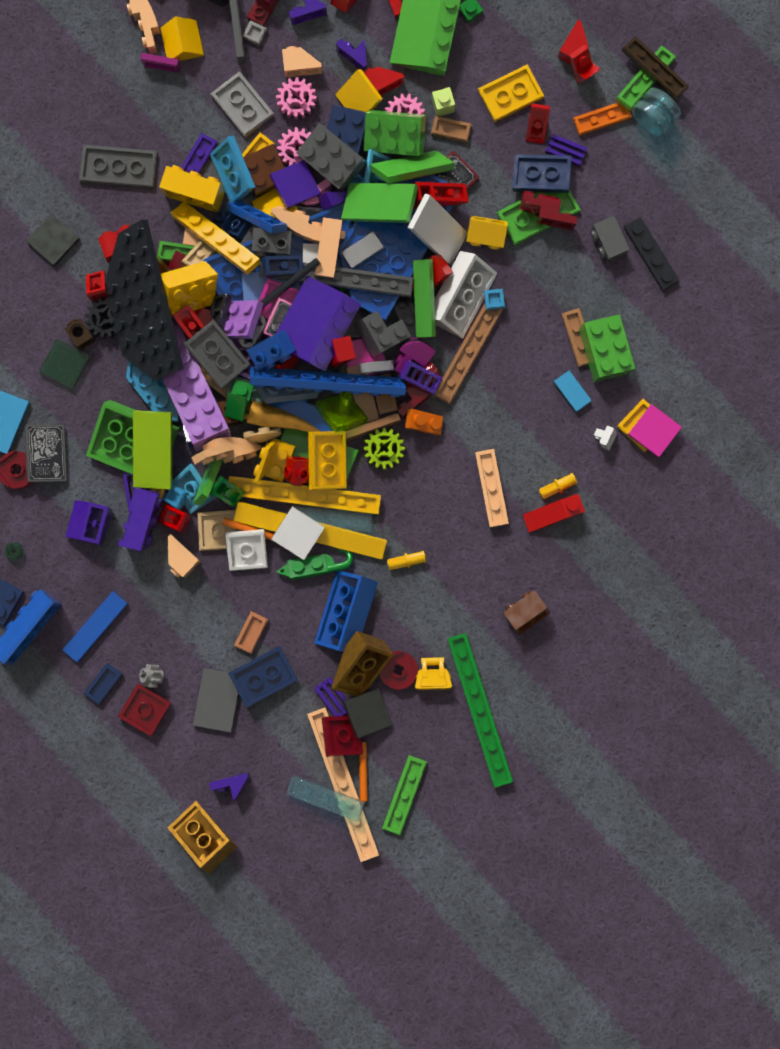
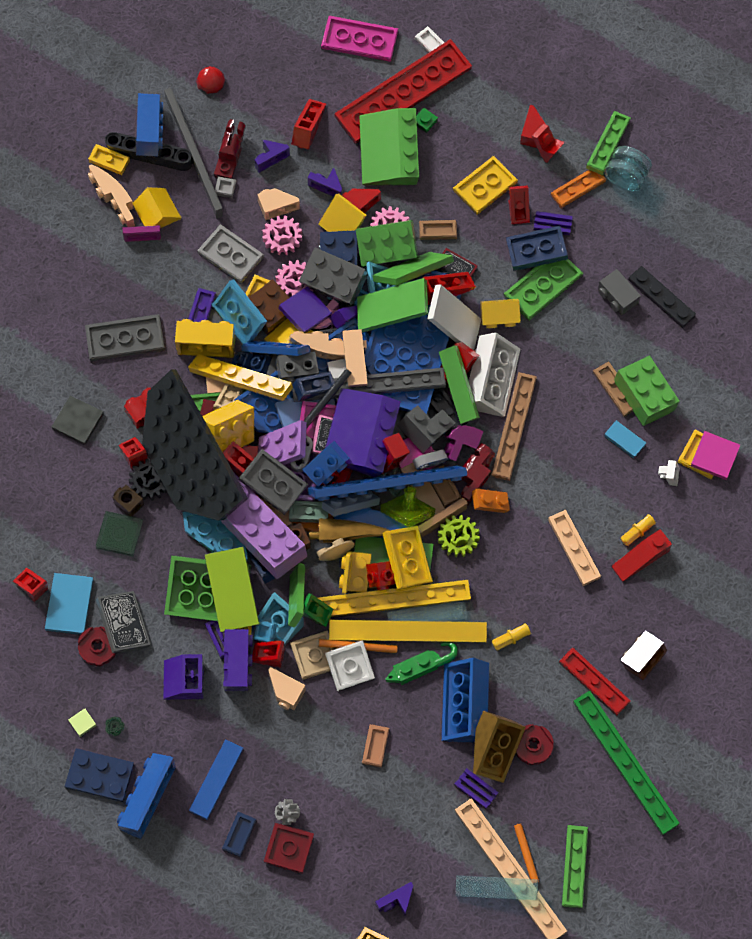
camera: 20 degrees left, 15 degrees down
(216, 701) = (359, 820): dark grey tile -> none
(220, 308) = (264, 439): black tile -> none
(228, 449) = (308, 569): light nougat slope -> none
(239, 400) = (305, 521): green slope -> none
(262, 676) = (400, 783): dark blue plate -> none
(298, 533) = (397, 634): white tile -> none
(340, 738) = (496, 820): dark red plate -> none
(362, 250) = (387, 354): light grey tile -> none
(367, 713) = (514, 793): pearl dark grey tile -> none
(403, 374) = (474, 464): dark purple slope -> none
(434, 678) = (571, 743): yellow piece -> none
(443, 102) = (424, 206): yellowish green brick -> none
(473, 623) = (594, 681): none -> red tile
(494, 299) = (525, 372): dark azure tile -> none
(547, 210) = (552, 279): dark red plate -> none
(655, 68) = (614, 130): dark brown tile -> none

